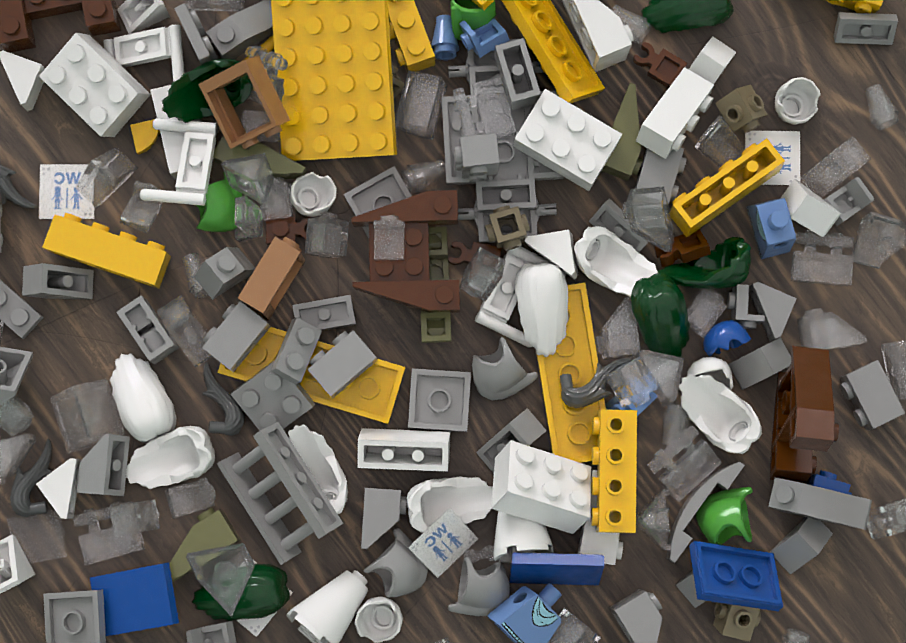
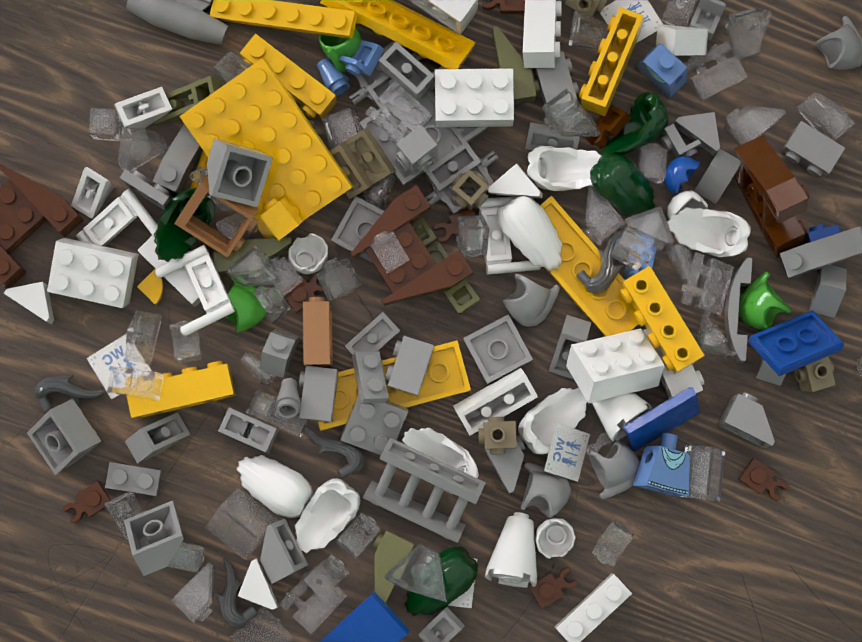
camera: 25 degrees left, 0 degrees up
(66, 217) = (135, 383): none -> clear slope
(201, 324) = (288, 399): none -> light grey cone
(288, 71) = (237, 172): none -> light grey slope
(306, 141) = (280, 217): none -> yellow brick
(395, 487) = (508, 433): none -> dark tan brick
(420, 136) = (362, 161): none -> dark tan slope

